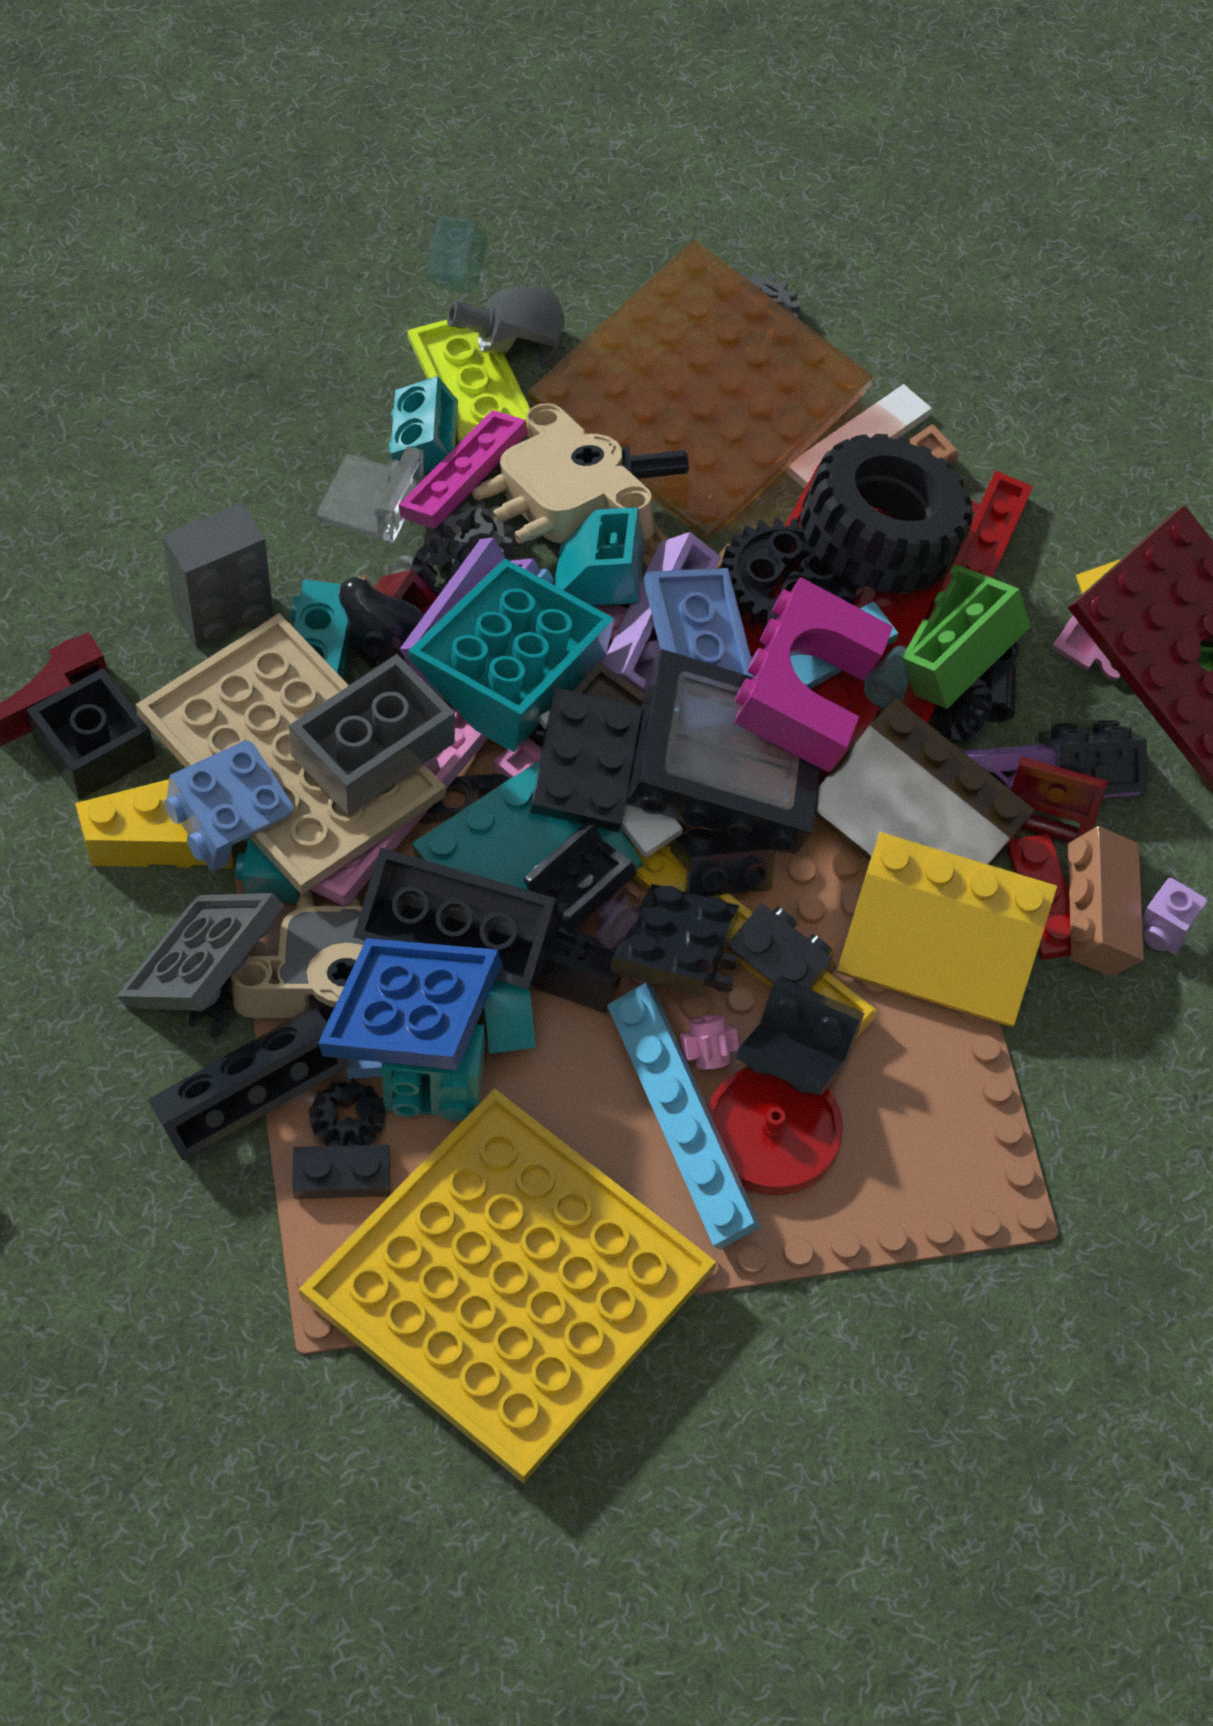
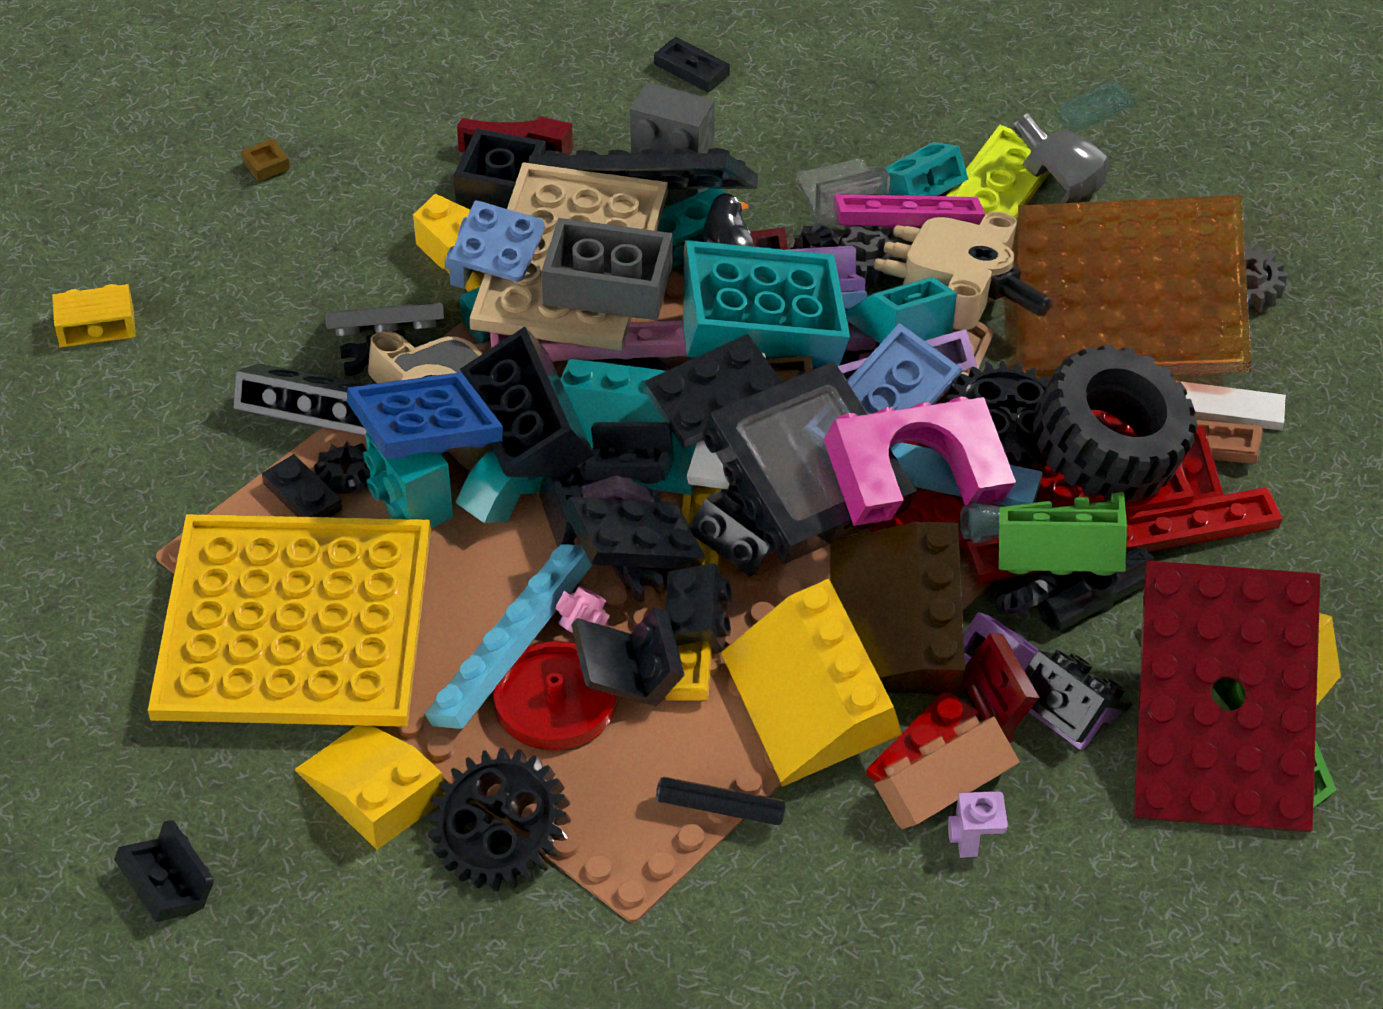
camera: 55 degrees right, 10 degrees down
(88, 487) = (691, 64): none -> black plate
(221, 630) = (681, 170): none -> black plate
(719, 1581) = (166, 874): none -> black bracket
(746, 1339) = (374, 782): none -> yellow slope
(897, 1306) = (521, 785): none -> black gear
(999, 1083) = (721, 800): none -> black axle

